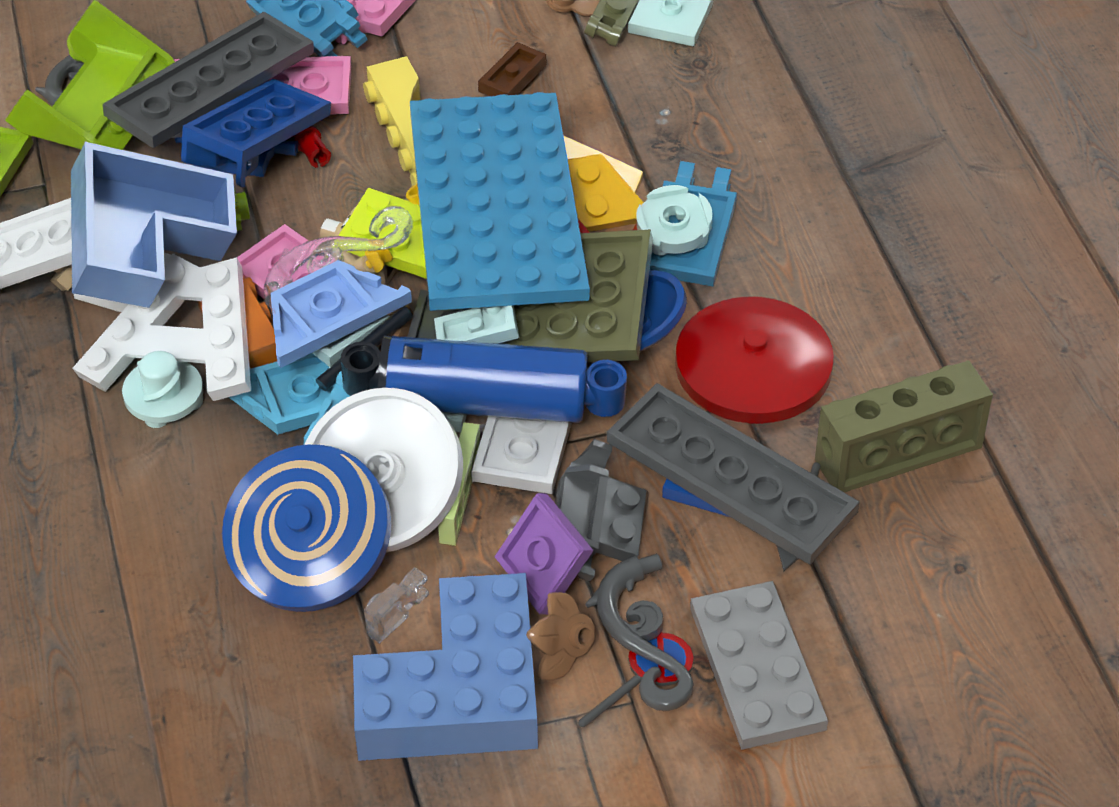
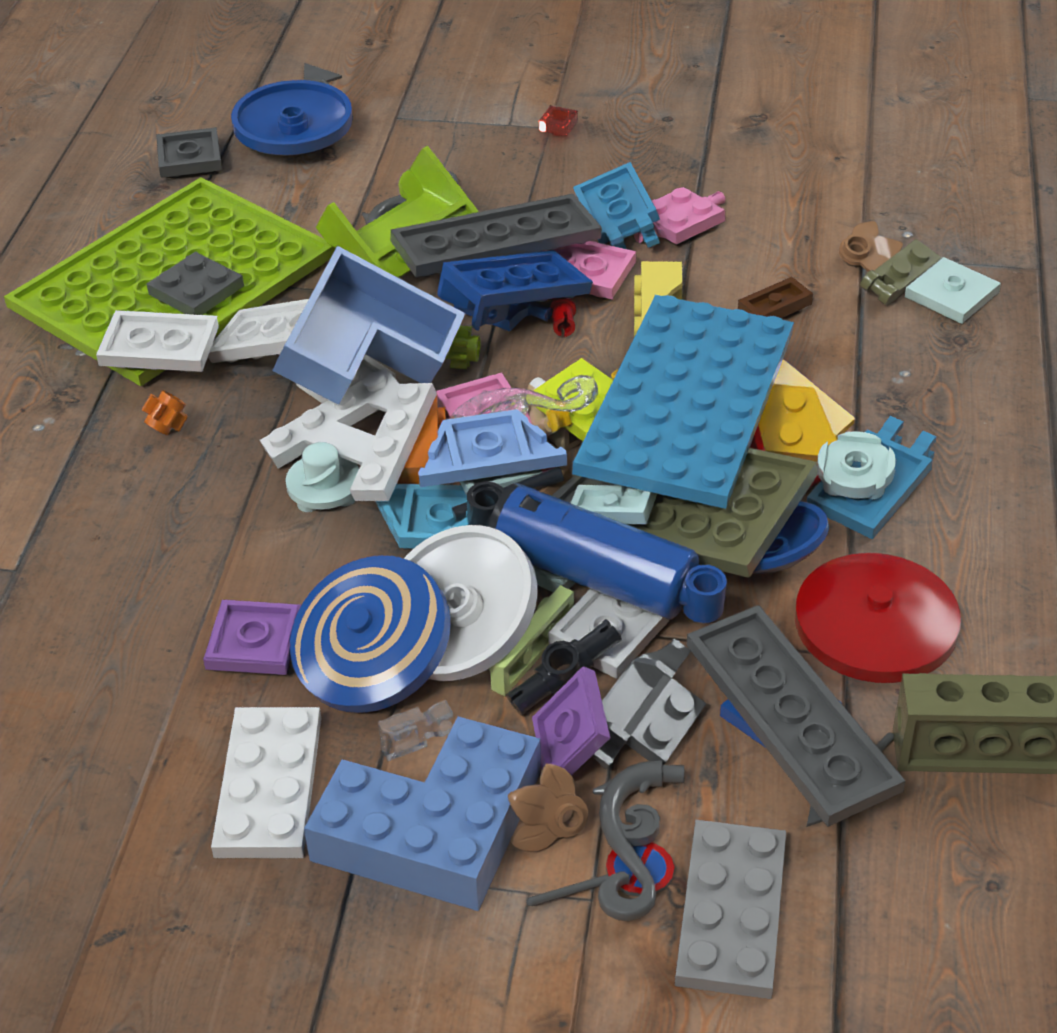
camera: 25 degrees right, 5 degrees down
(185, 569) = (251, 637): none -> medium lavender plate
(279, 702) = (267, 783): none -> white plate
(498, 516) = (578, 654): none -> black pin

